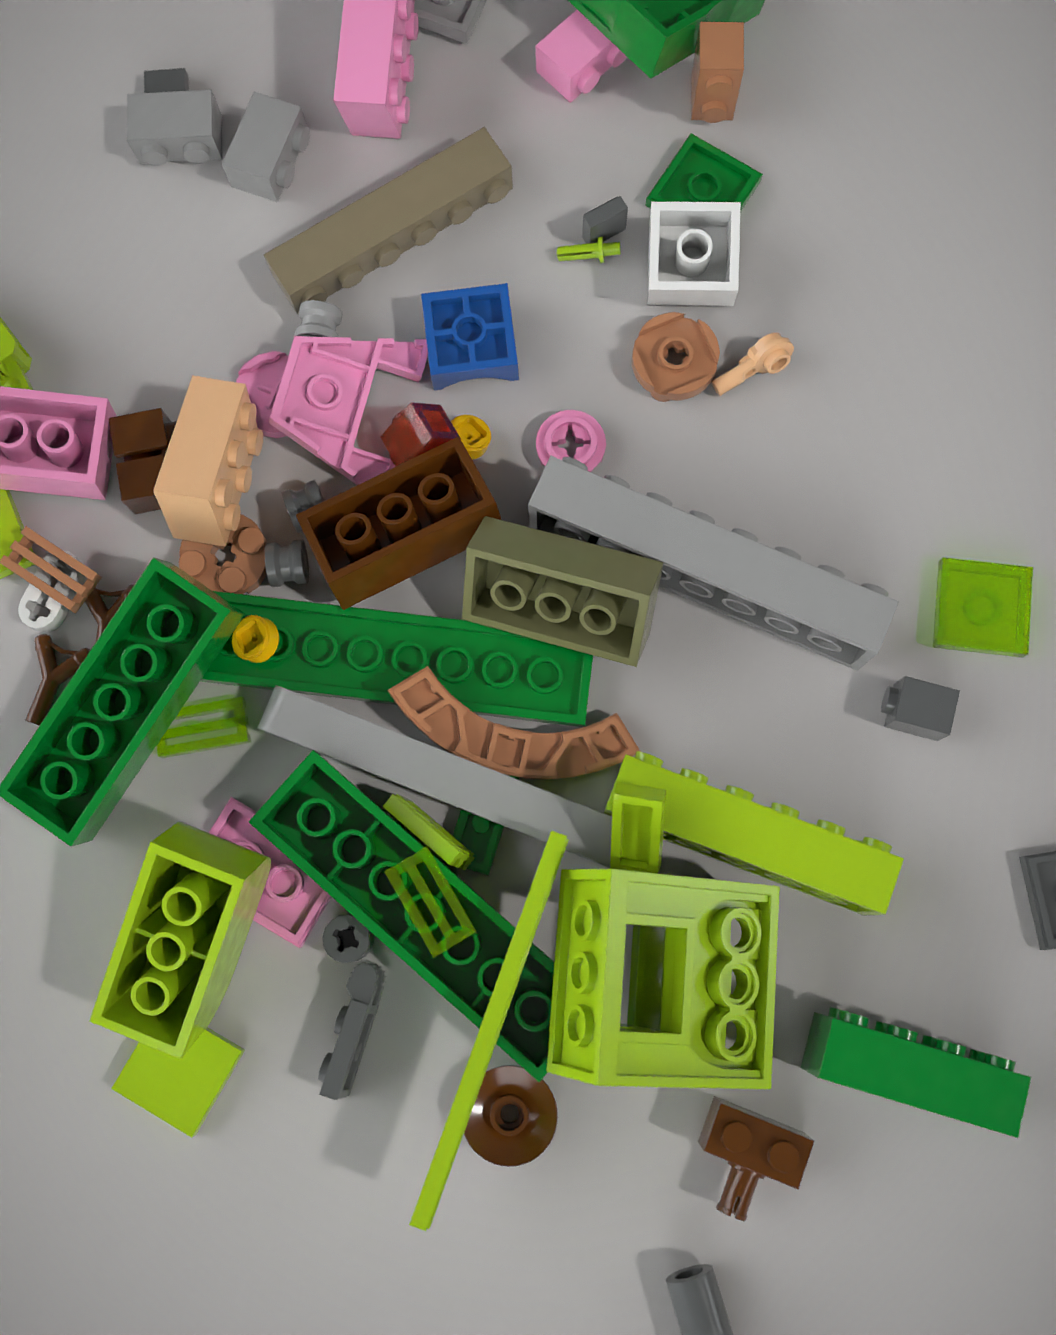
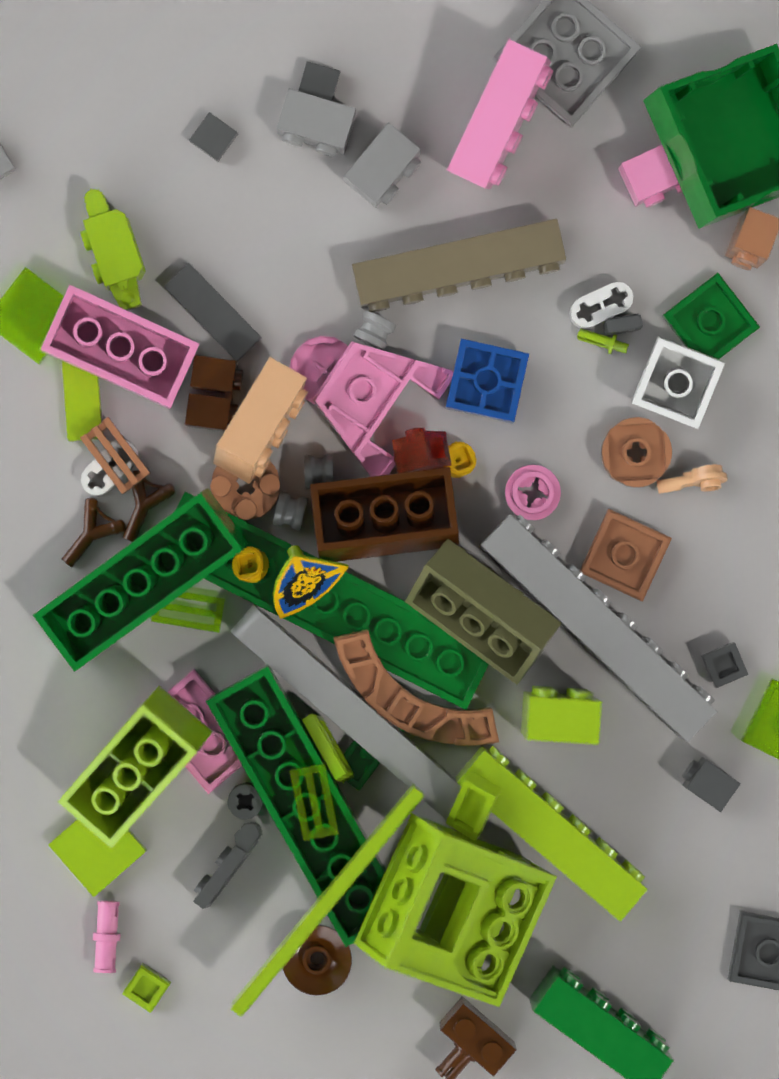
camera: 20 degrees right, 10 degrees up
(64, 186) = (213, 137): none -> dark grey tile
(122, 373) = (212, 312): none -> dark grey tile
(224, 1186) = (106, 936): none -> bright pink pin
(300, 1236) = (146, 988): none -> lime tile
(326, 633) = (304, 581): none -> shield
(567, 207) = (598, 297): none -> white beam
(707, 679) = (561, 717): none -> lime brick
(710, 473) = (625, 555): none -> nougat plate
(878, 560) = (724, 665): none -> dark grey plate

